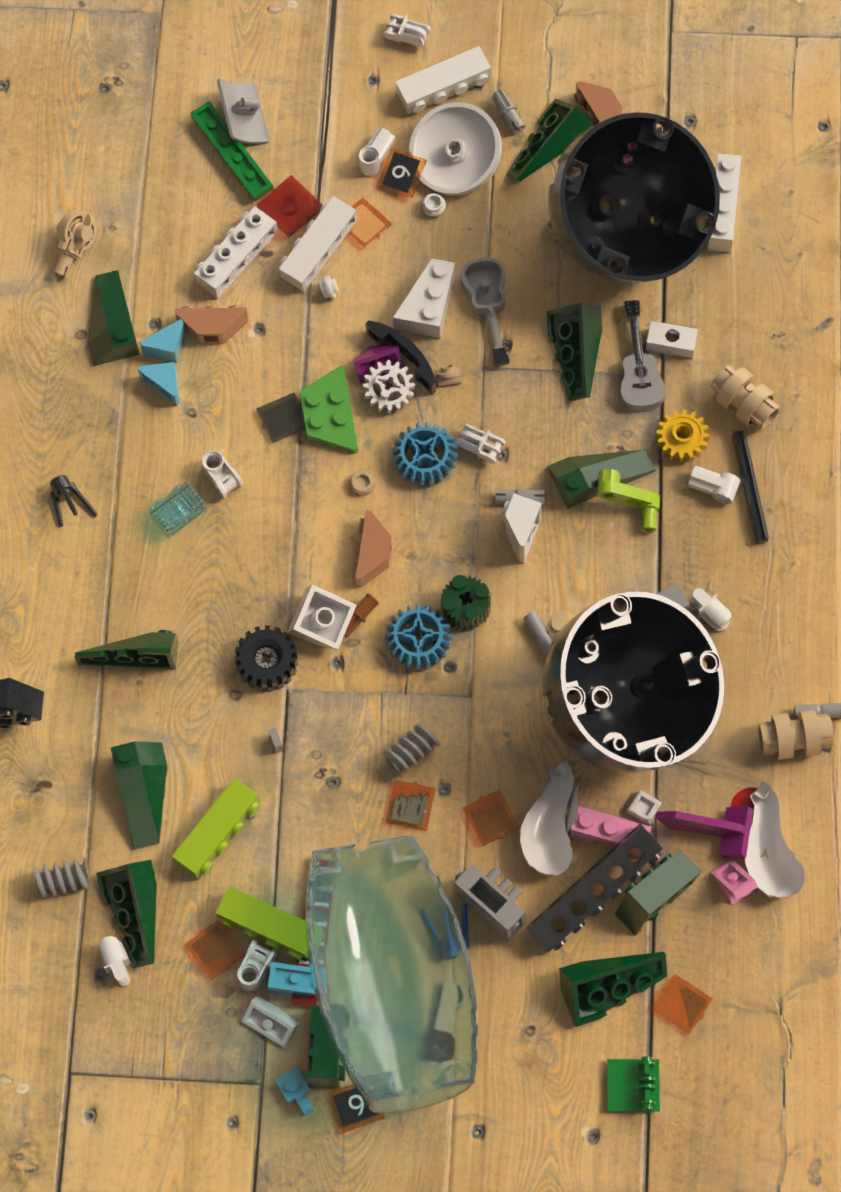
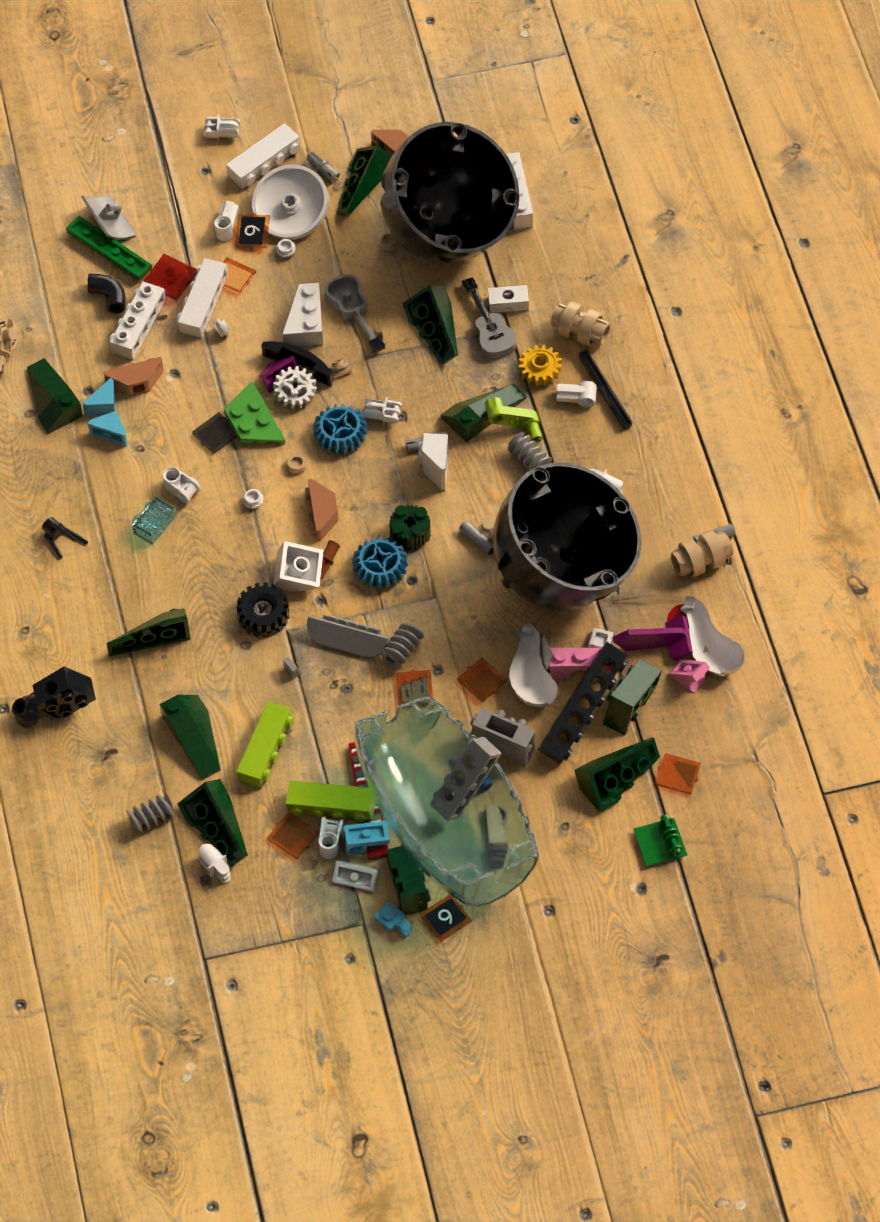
camera: 20 degrees left, 10 degrees down
(218, 204) = (110, 289): none -> black cylinder
(298, 514) = (253, 499): none -> white plate
(352, 717) = (346, 635): none -> light grey brick
(423, 951) = (486, 756): none -> light grey brick
(632, 548) = (526, 452): none -> light grey piece

